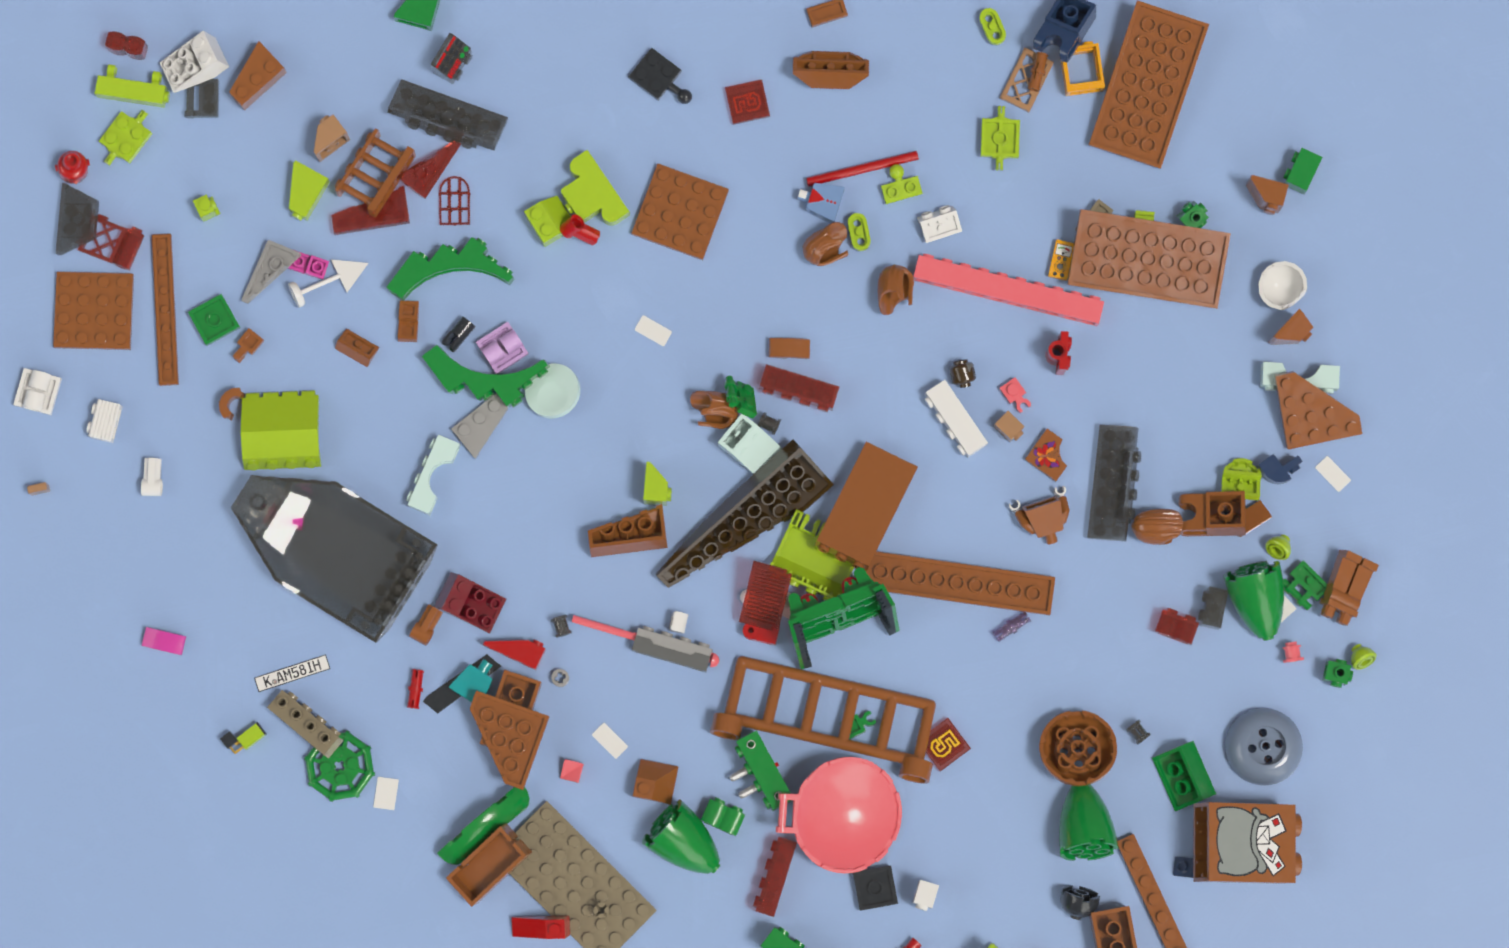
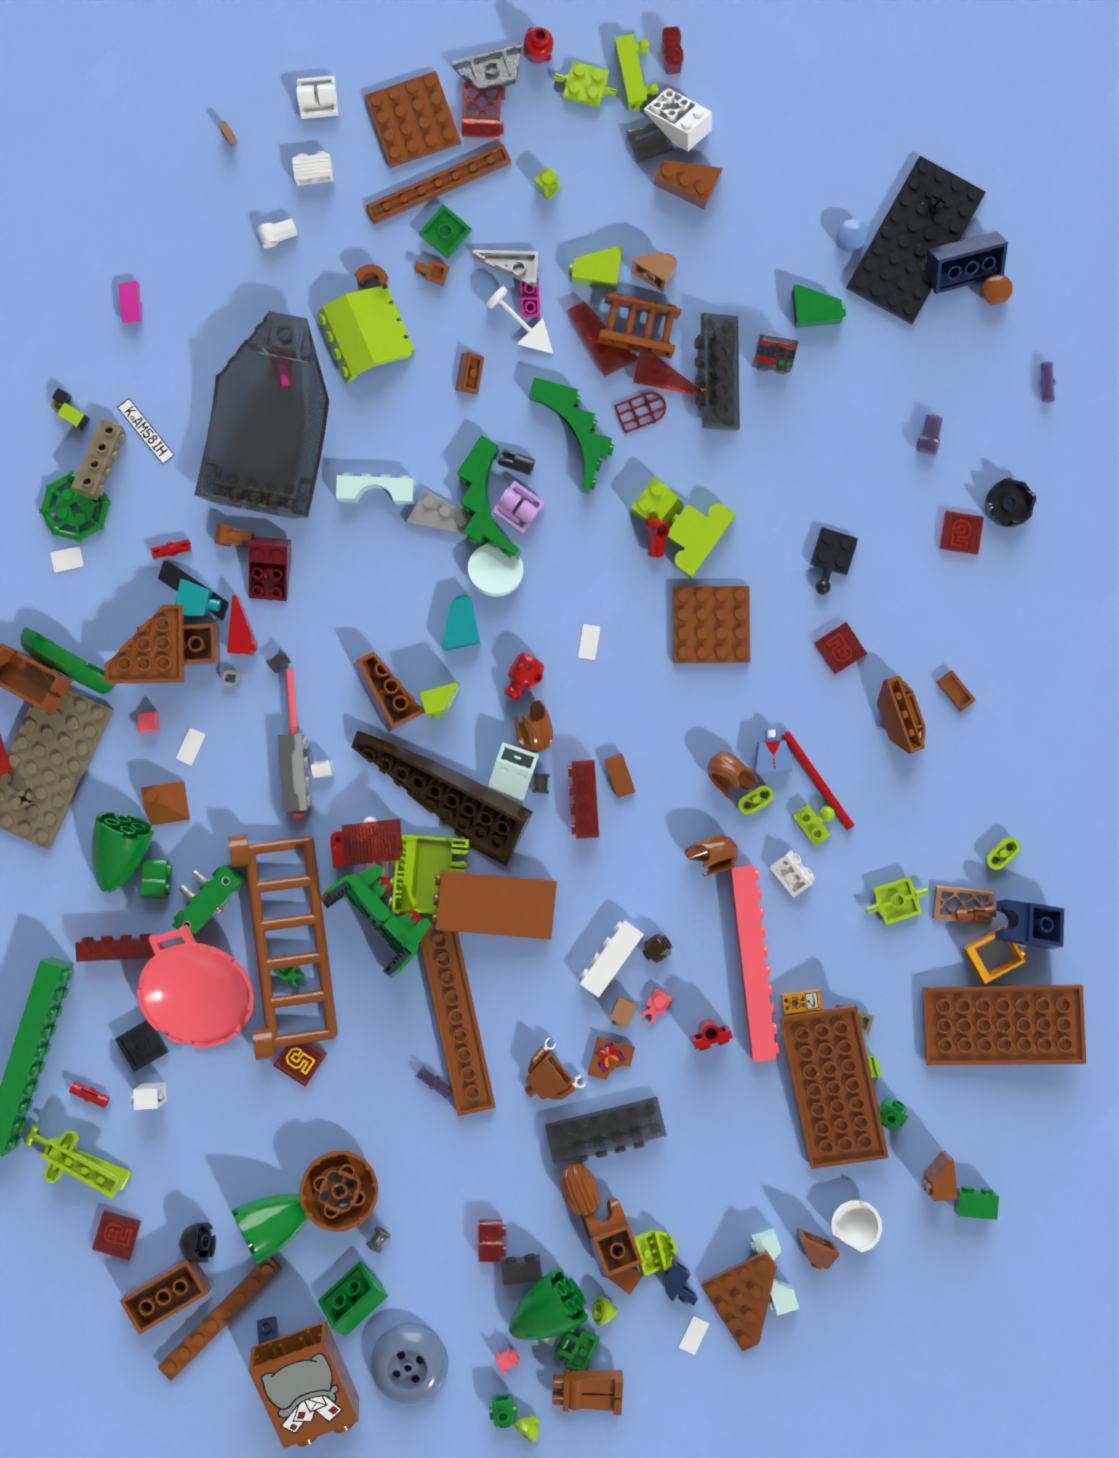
camera: 75 degrees right, 5 degrees up
(408, 321) = (511, 411): dark orange slope -> none
(592, 441) = (461, 625): none -> teal slope
(661, 400) = (523, 673): none -> red piece
(741, 396) = (554, 747): green plate -> none

